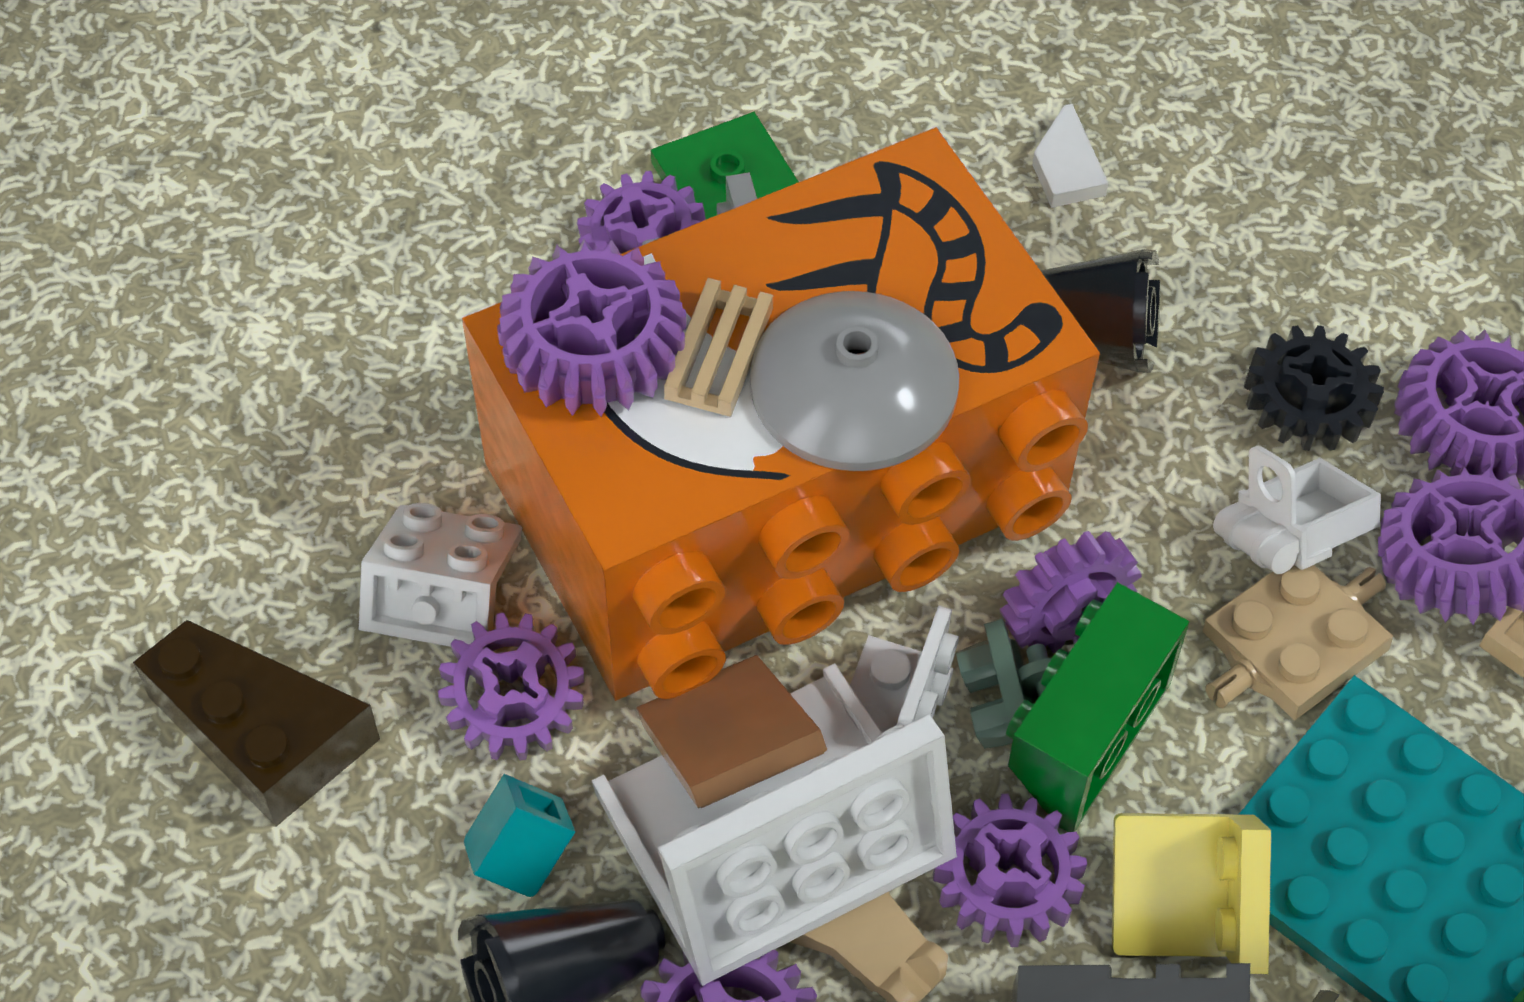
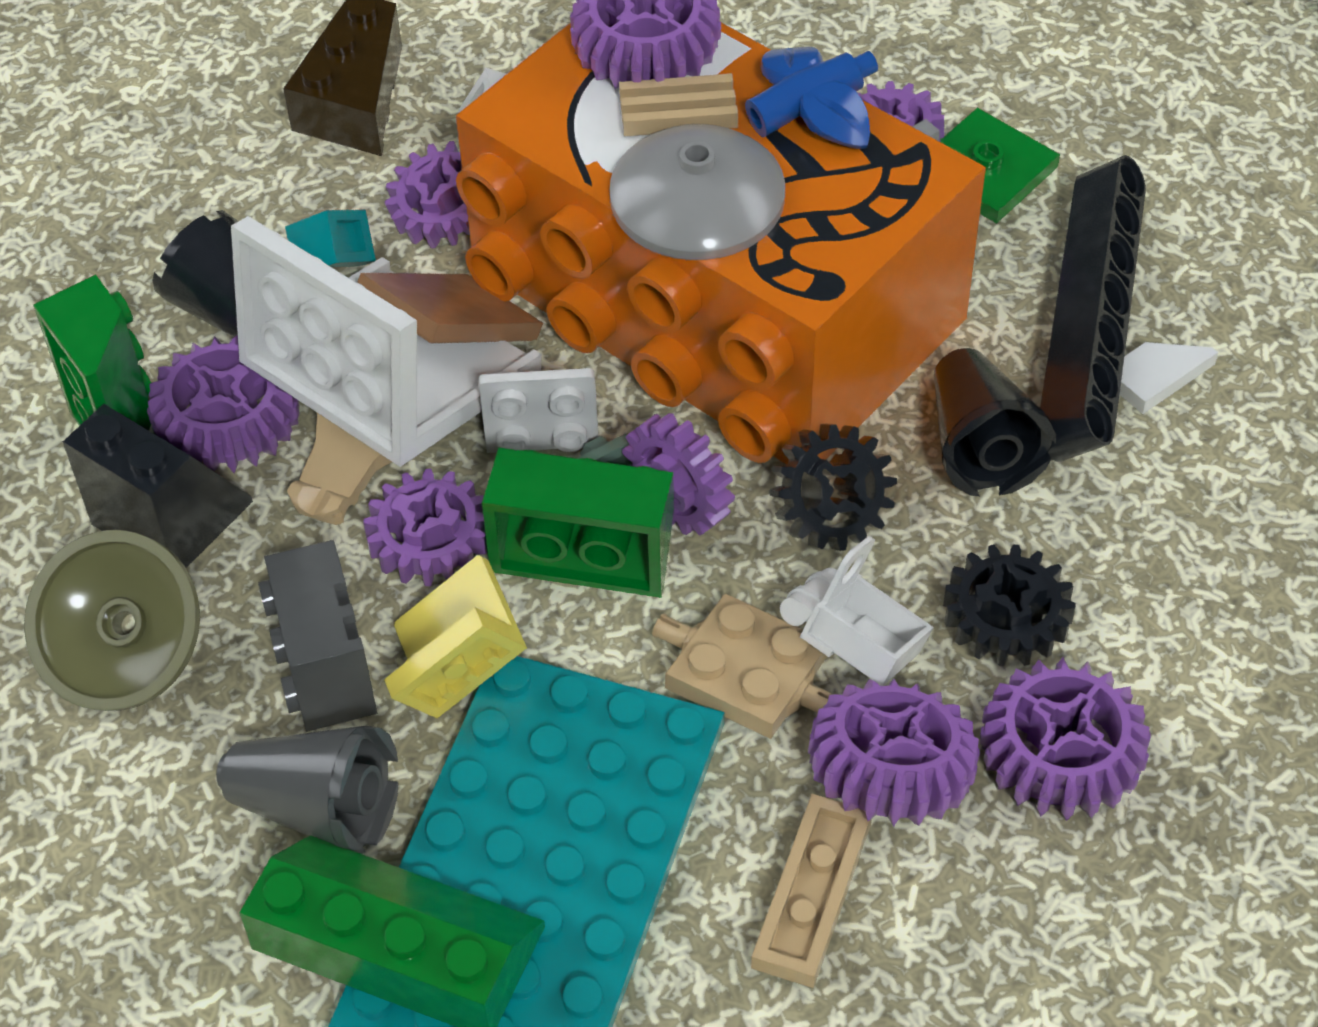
camera: 70 degrees right, 5 degrees down
(772, 219) = (817, 92): none -> blue plant
(1010, 179) = (1093, 308): none -> black beam
(1133, 466) = (857, 480): none -> black gear

